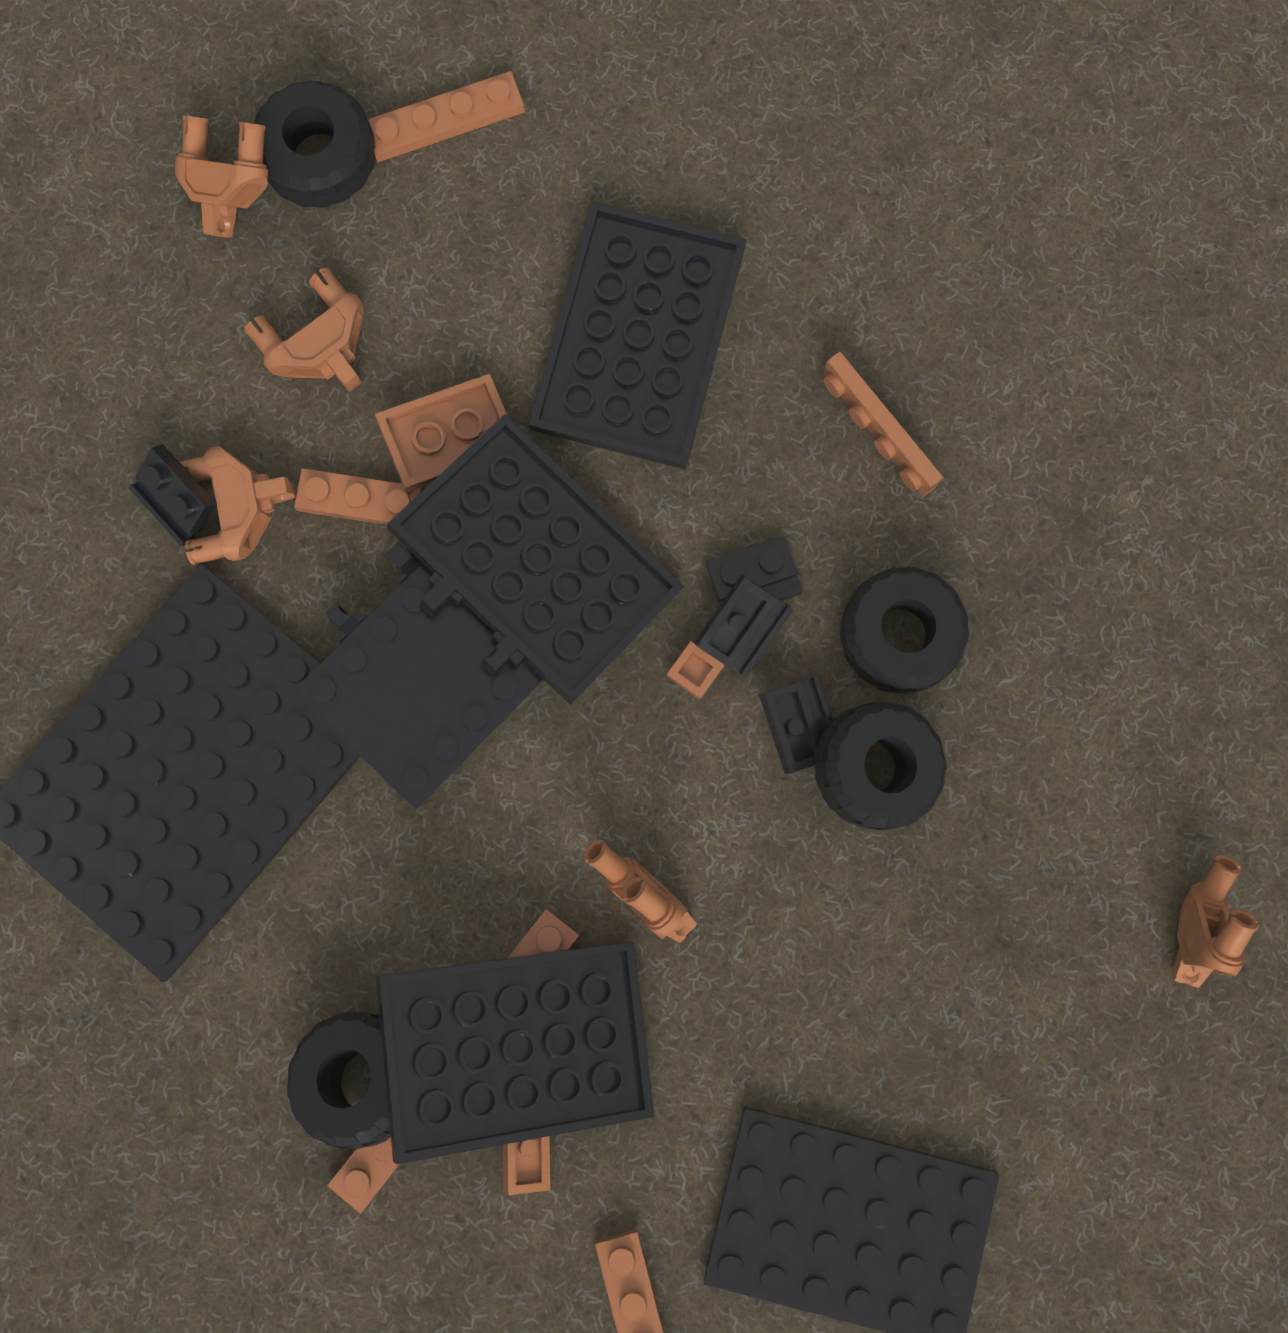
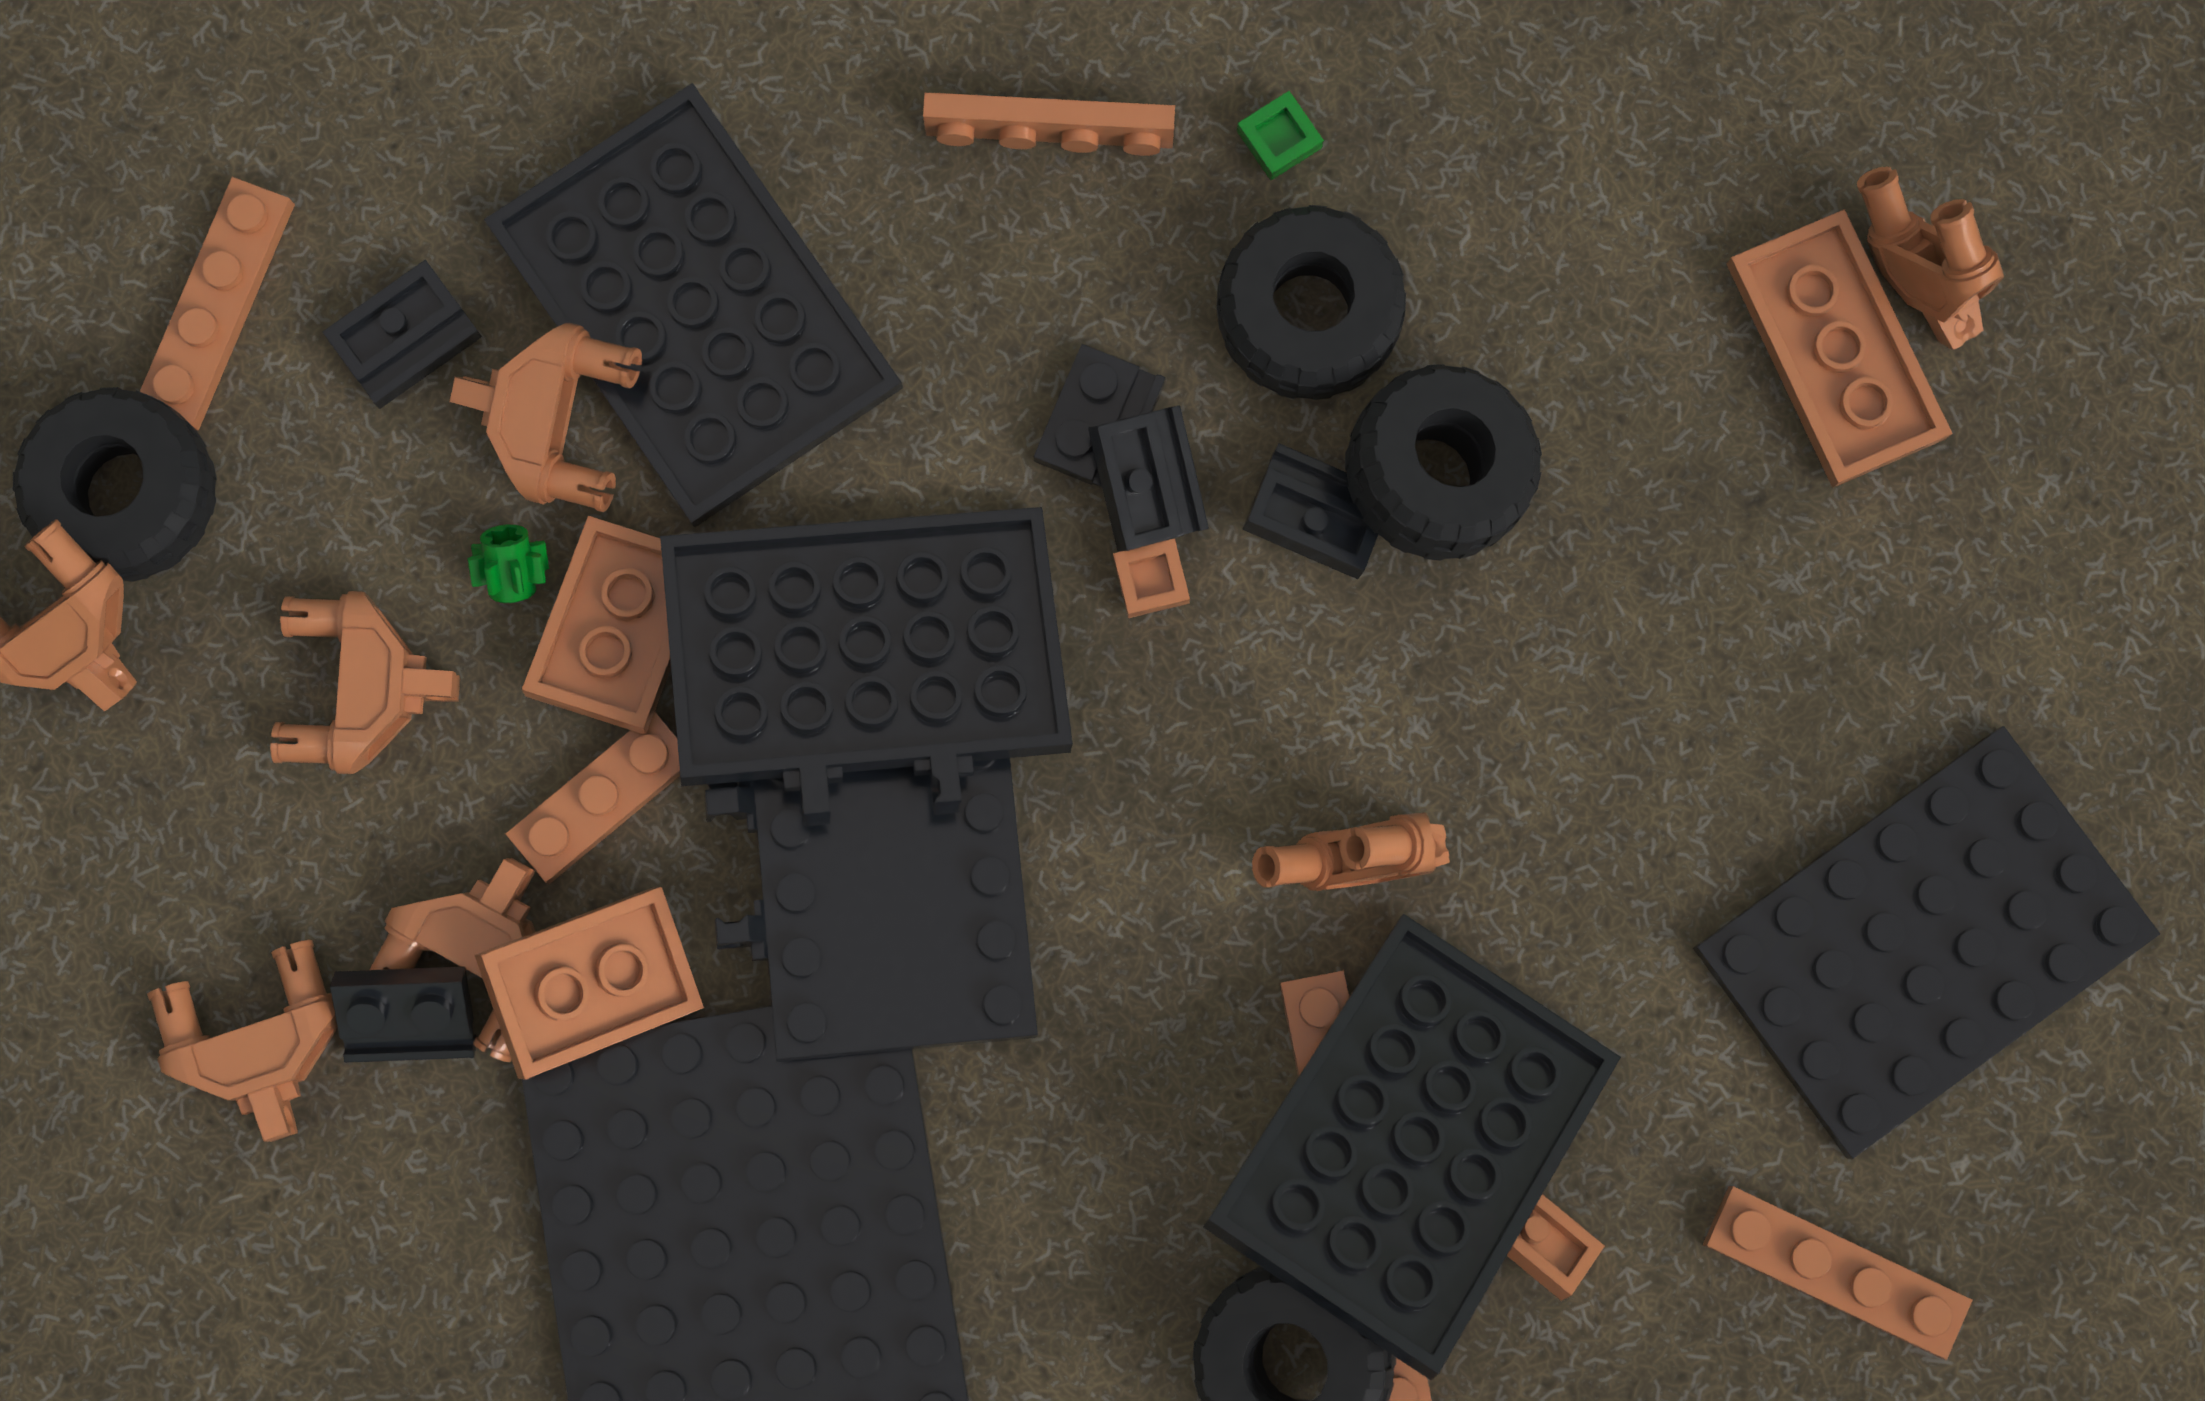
camera: 50 degrees left, 0 degrees up
(94, 448) = (259, 1061): none -> nougat connector
(257, 568) = (589, 982): none -> nougat plate
(433, 356) = (508, 563): none -> green gear
(503, 212) = (402, 334): none -> black plate
(516, 303) = (531, 408): none -> nougat connector
(976, 543) = (1279, 135): none -> green plate
(1121, 920) = (1838, 348): none -> nougat plate

